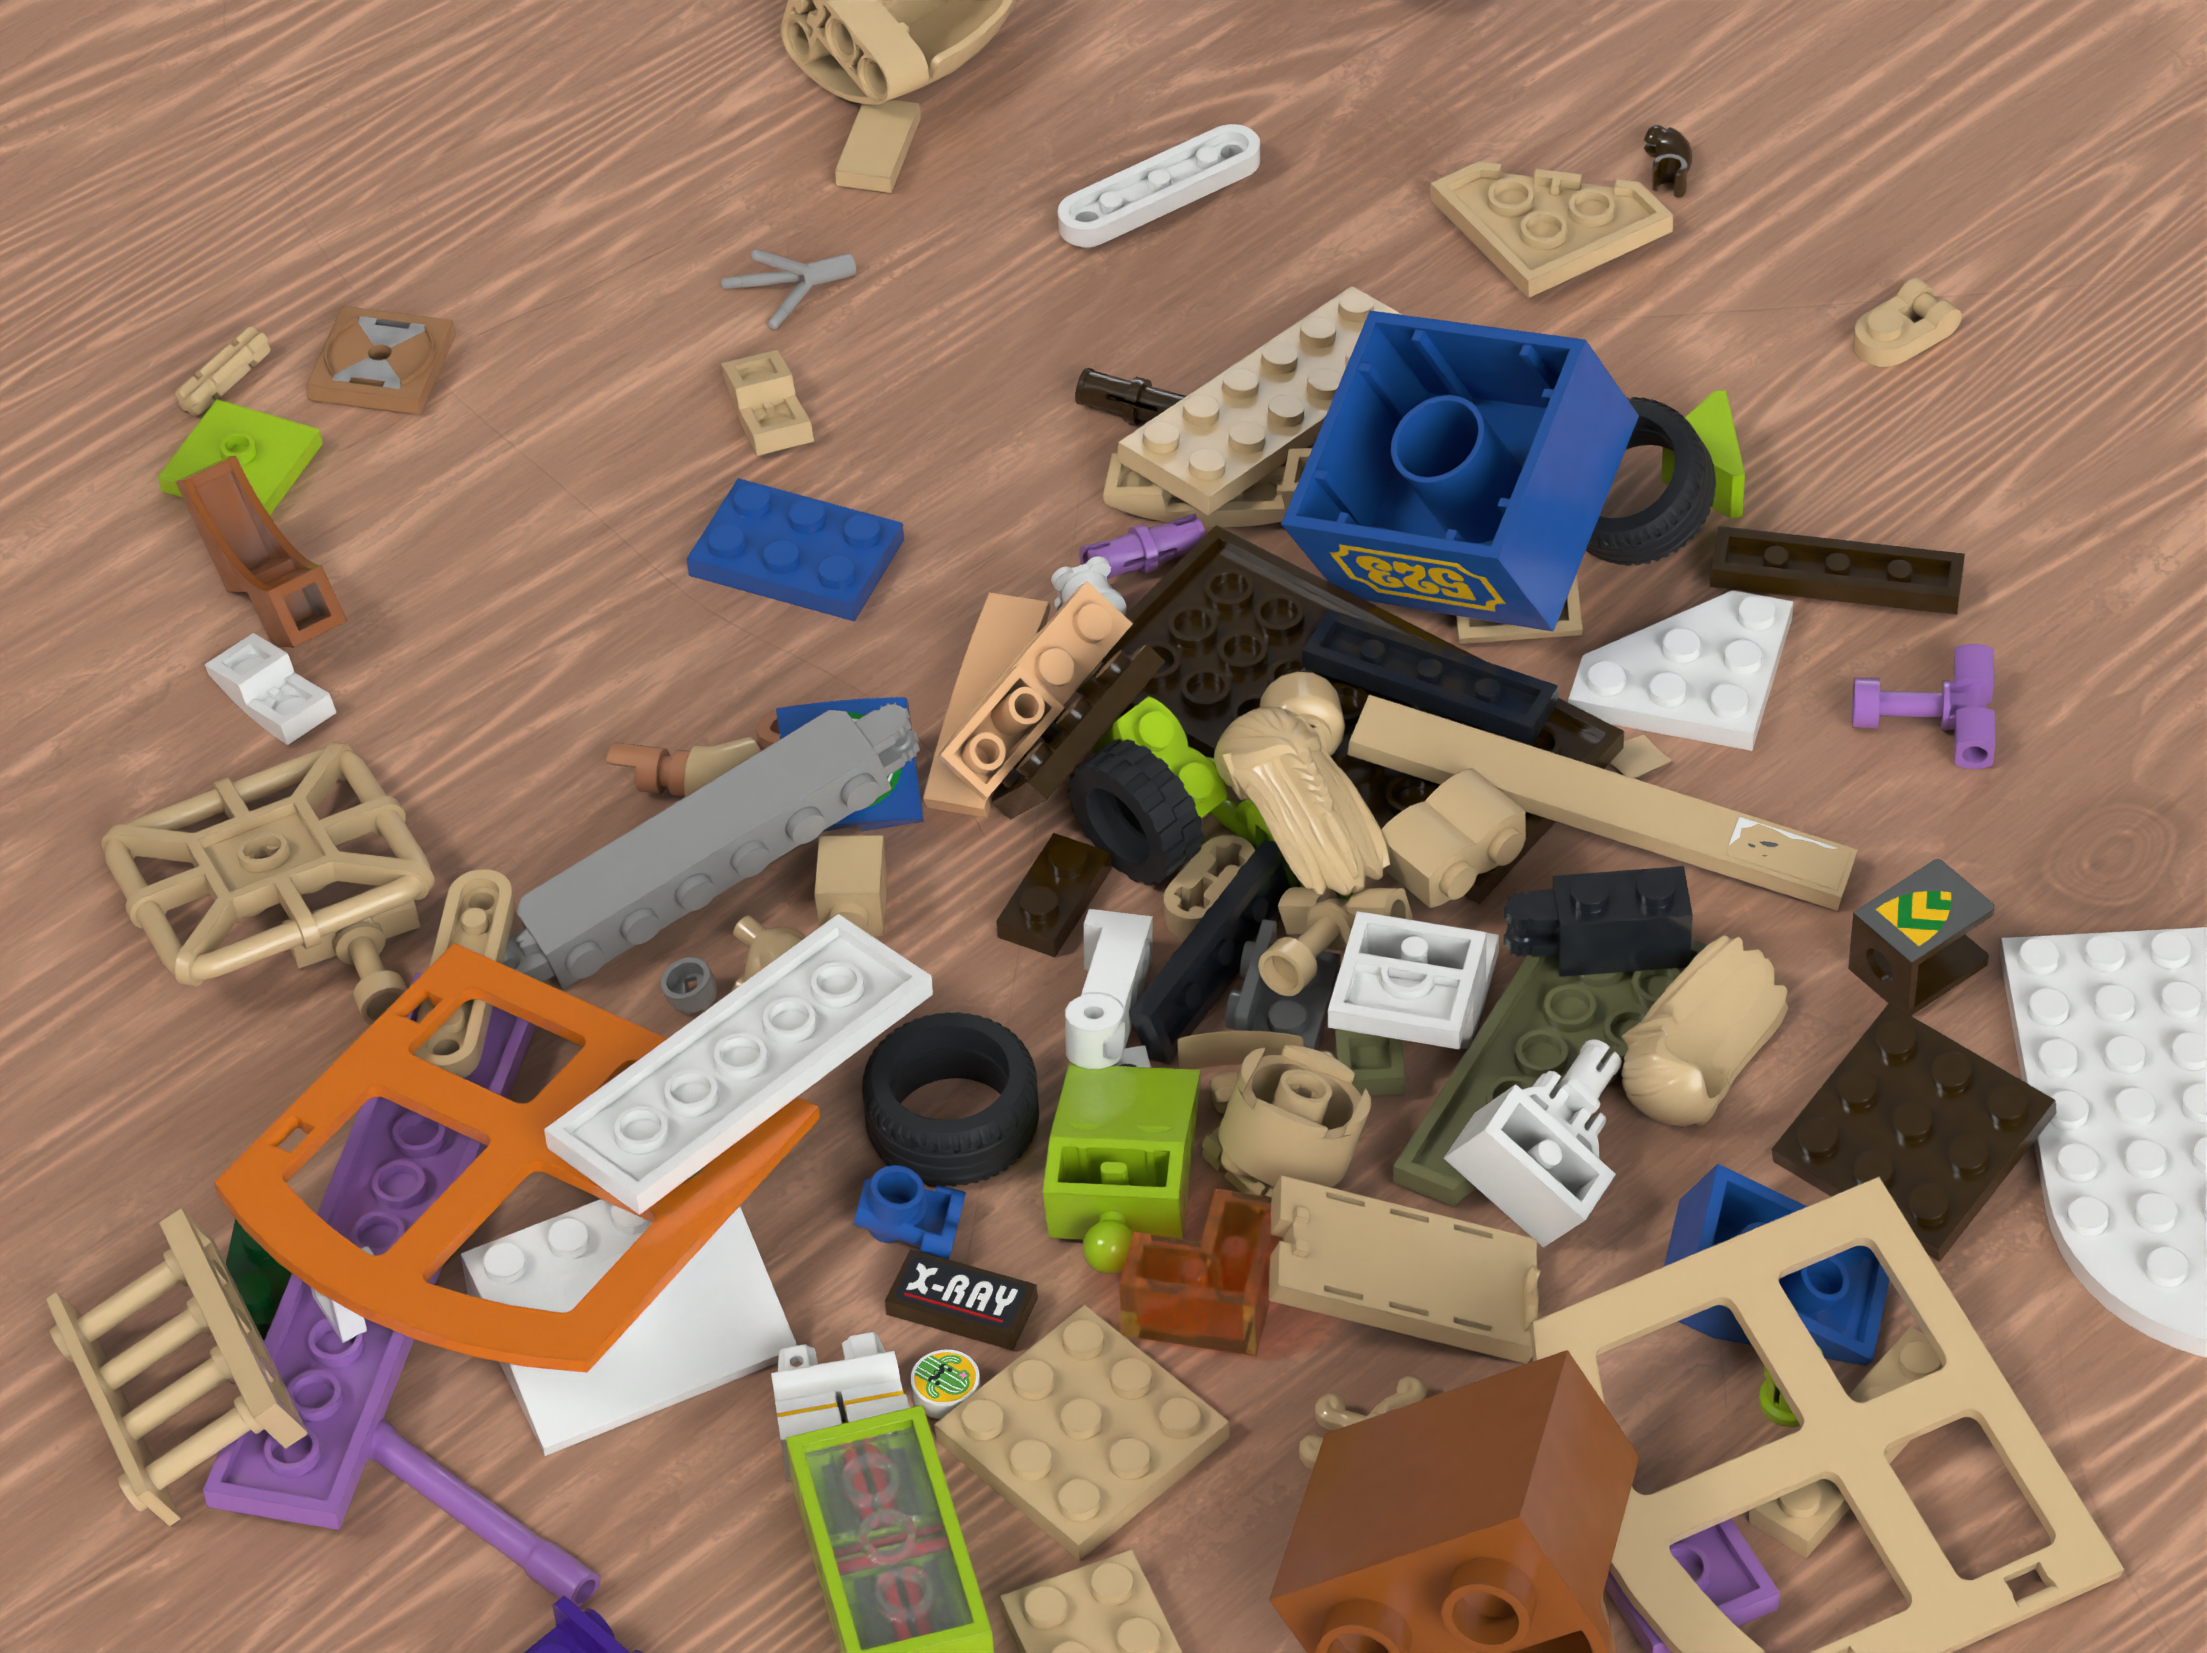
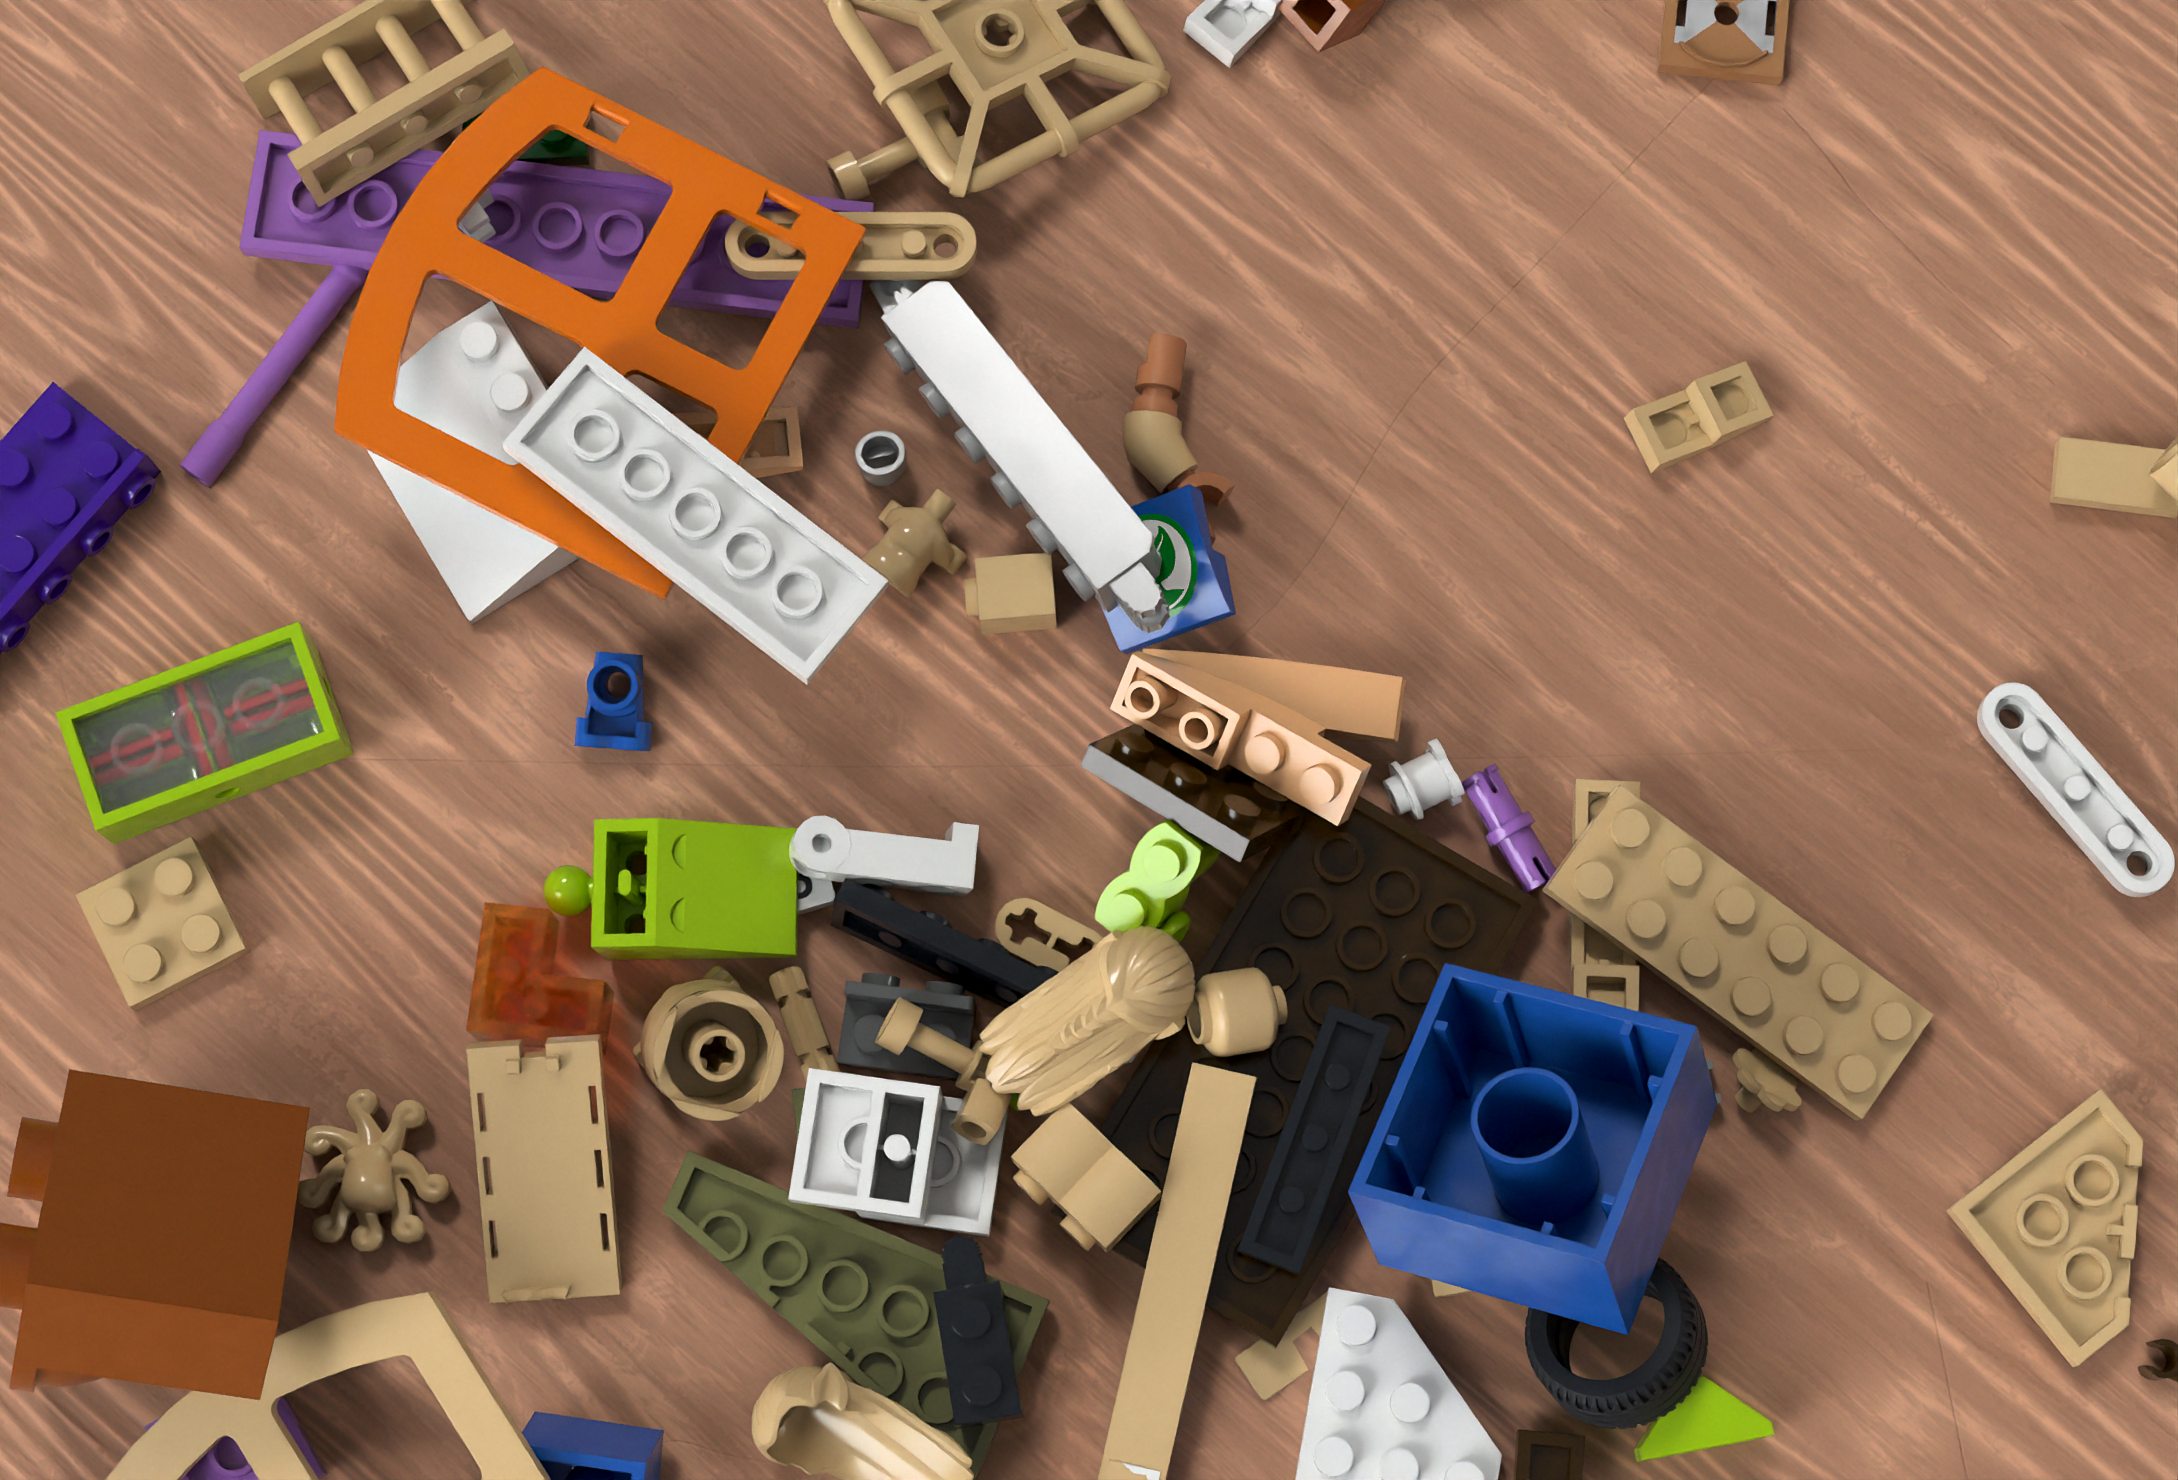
camera: 85 degrees right, 30 degrees up
(795, 549) = (1488, 476): blue plate -> none
(804, 274) = (1888, 401): light grey plant -> none
(825, 1393) = (380, 671): white hips -> none
(941, 1049) = (751, 788): black tyre -> none
(943, 1381) = (431, 760): tile -> none
(961, 1299) = (529, 762): tile -> none
(1054, 895) = (1035, 791): dark brown plate -> none
(1082, 1432) = (385, 890): tan plate -> none
(1132, 399) = (1736, 796): dark brown pin -> none
(1136, 811) = (1095, 857): black tyre -> none
(1230, 1047) = (839, 1001): tan sticker -> none
(1538, 1150) = (700, 1294): white brick -> none

